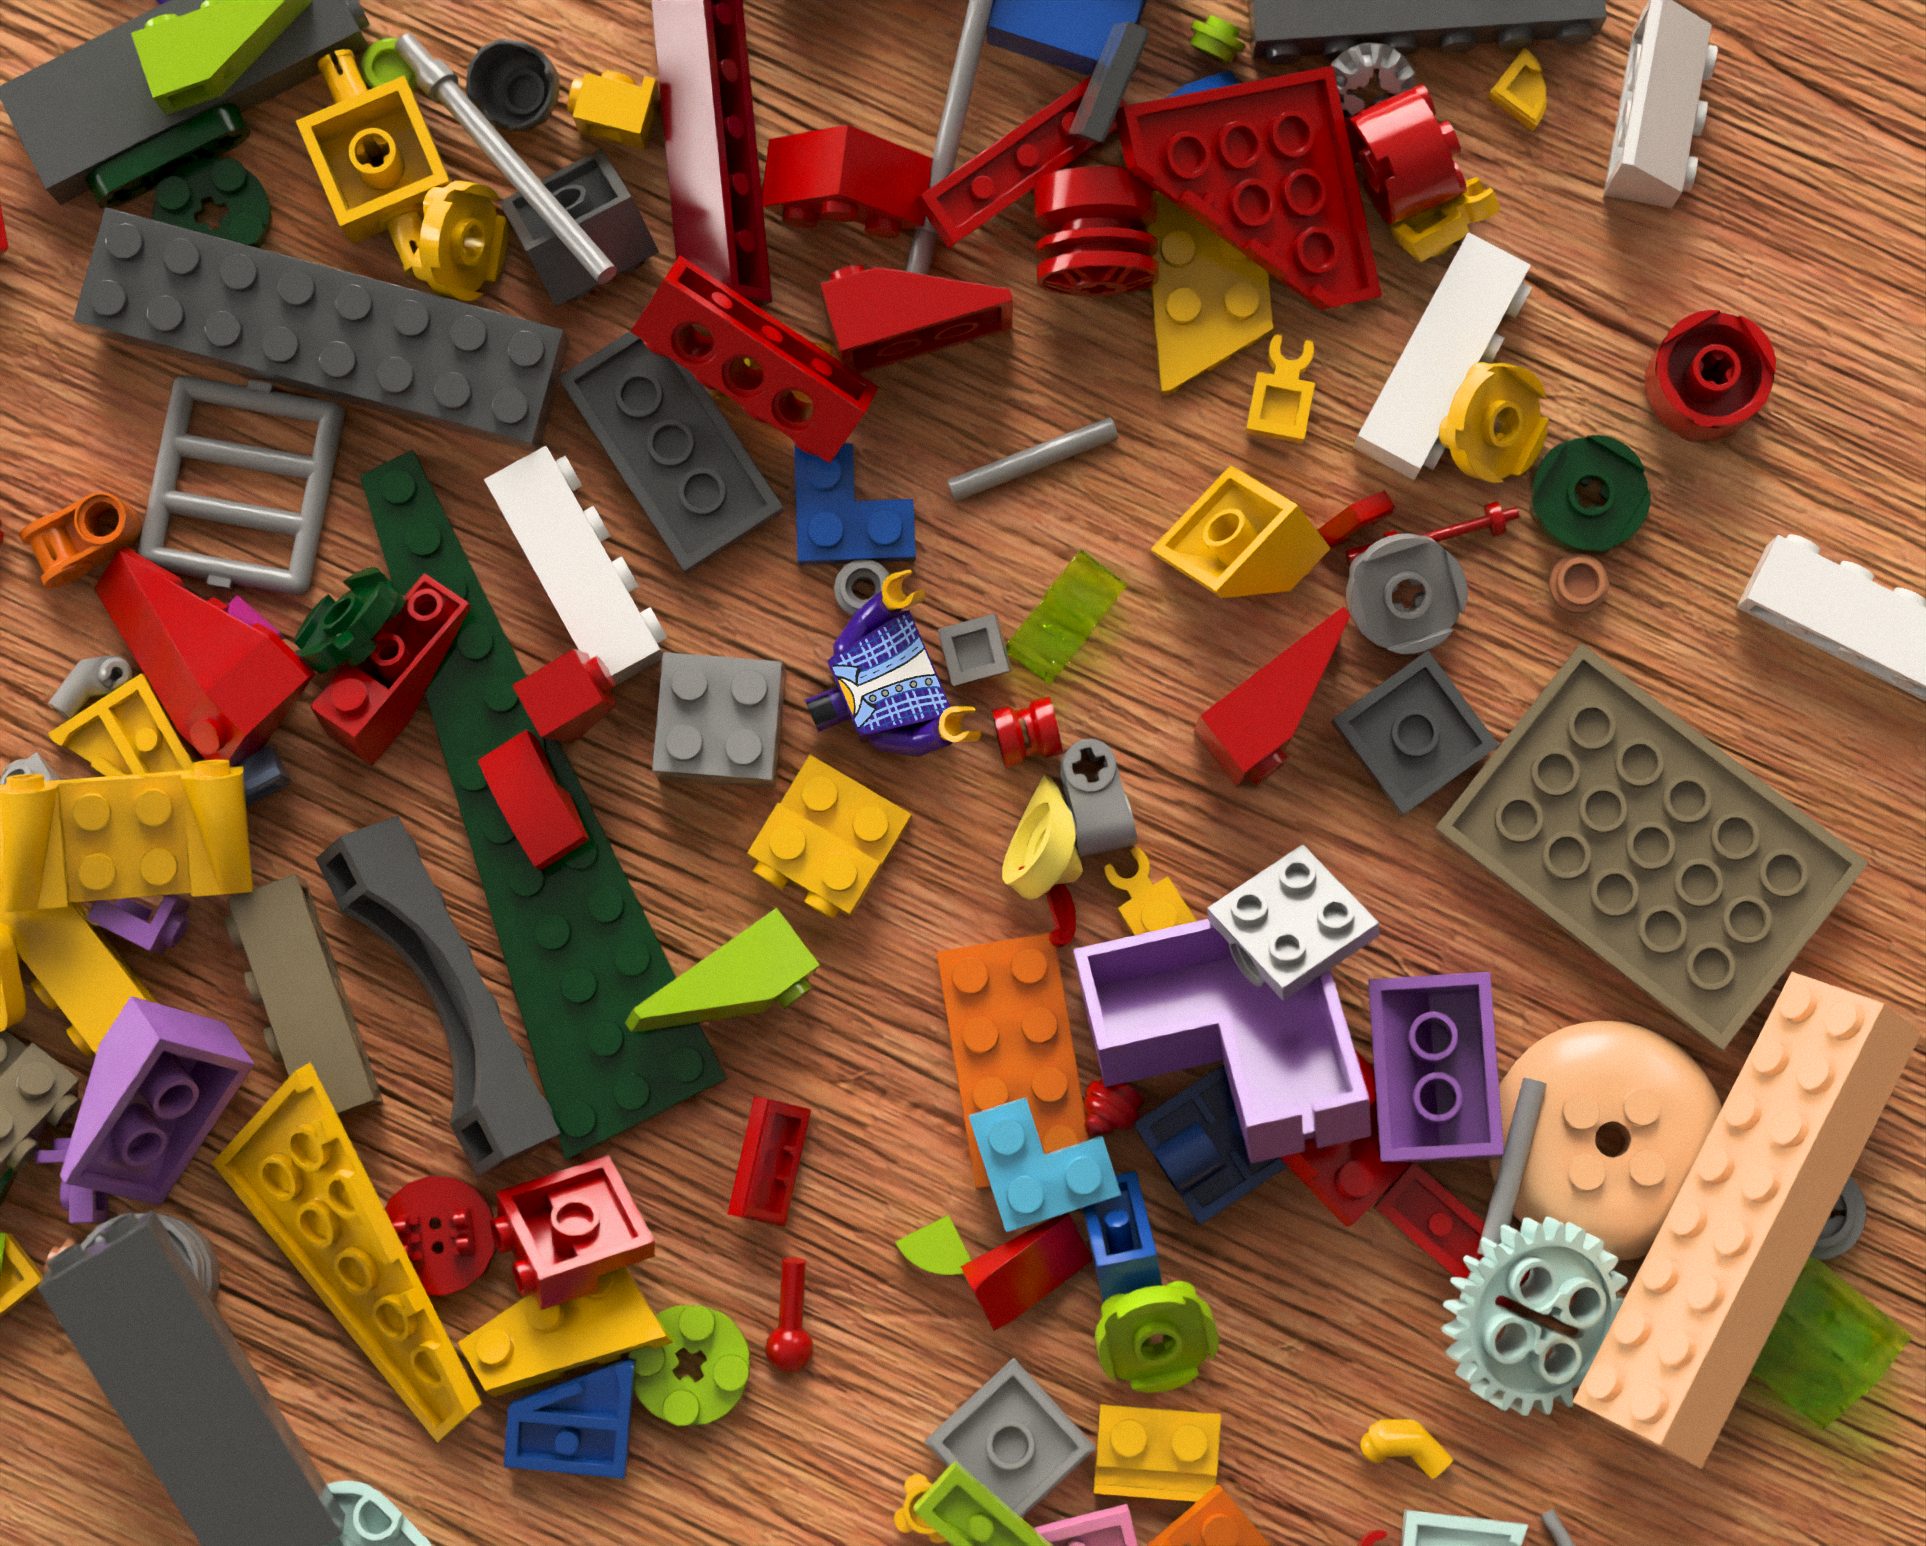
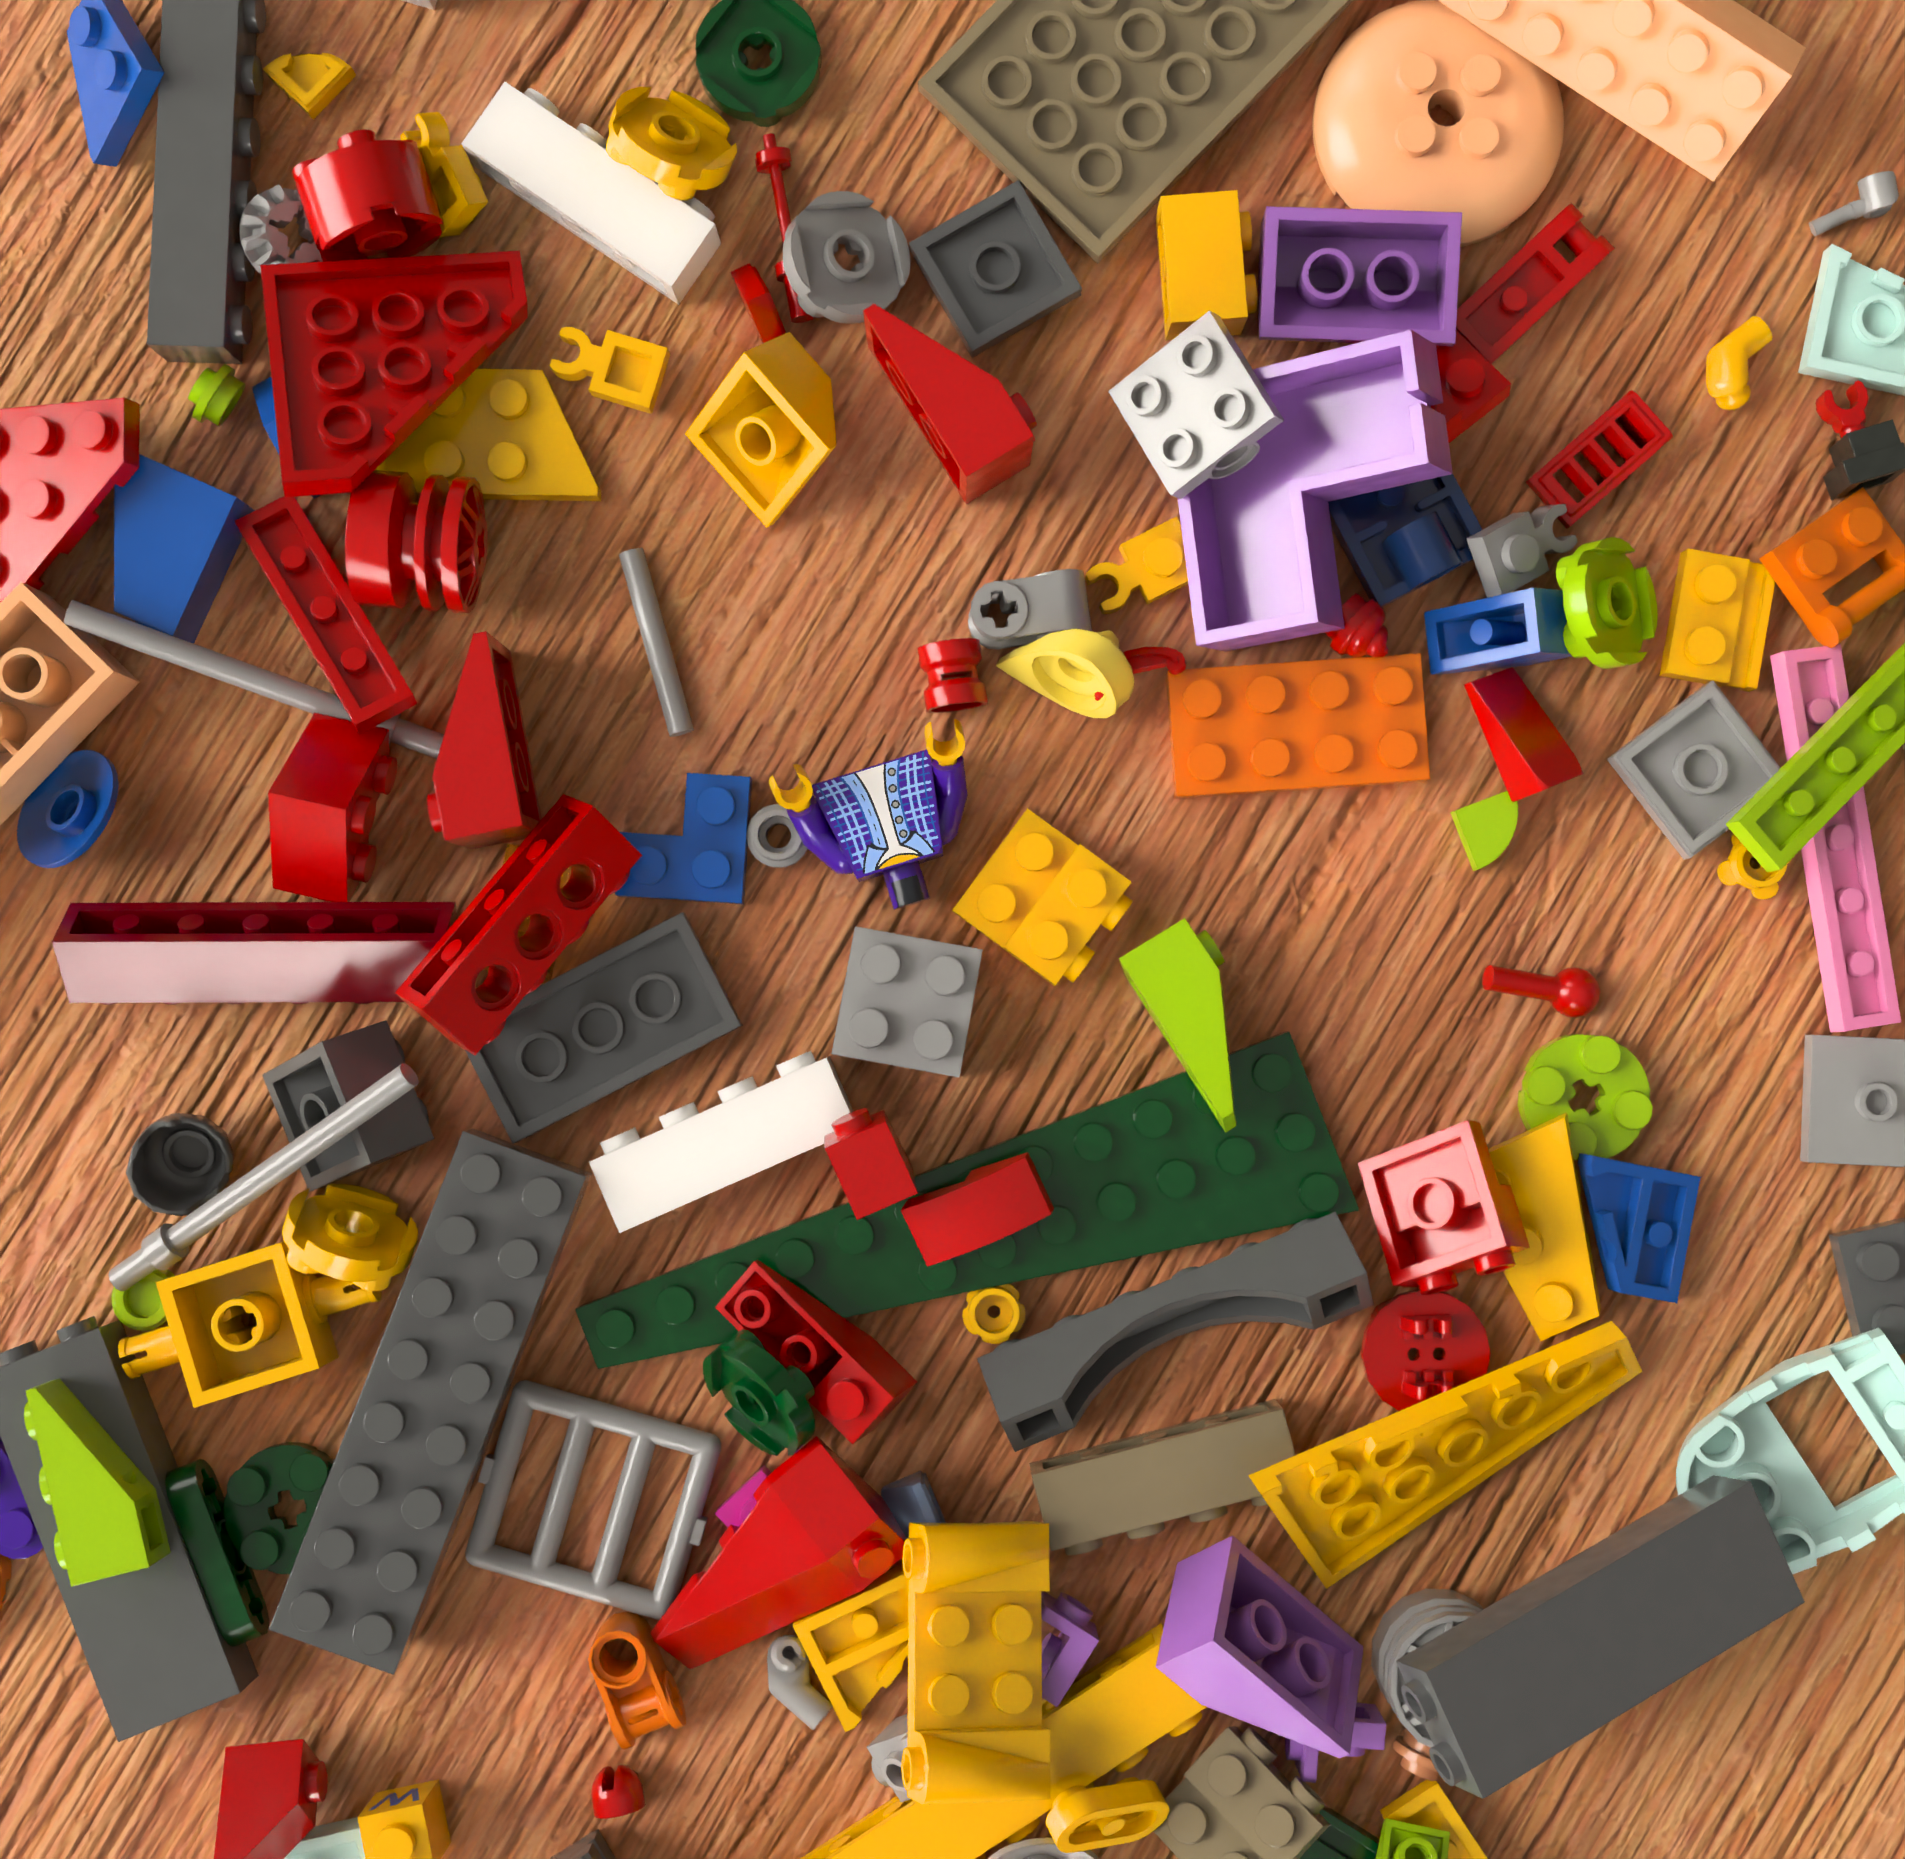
camera: 85 degrees left, 5 degrees up
(426, 833) = (994, 1329): none -> yellow plate
(614, 107) = (218, 1055): yellow brick -> none
(769, 1161) = (1382, 993): red plate -> none
(974, 650) = (858, 723): light grey plate -> none
(1037, 1184) = (1436, 711): medium azure plate -> none
(1065, 617) = (831, 624): clear neon green slope -> none
(1109, 82) = (251, 501): dark grey tile -> none
(1201, 1245) = (1514, 548): none -> light grey plate
(1336, 1355) = (1639, 422): none -> red slope
(1437, 925) = (1202, 260): none -> yellow brick
(1513, 1160) = (1474, 217): light grey bar -> none
(1513, 1368) = (1582, 185): light aqua gear -> none
(1578, 583) = (851, 81): nougat plate -> none

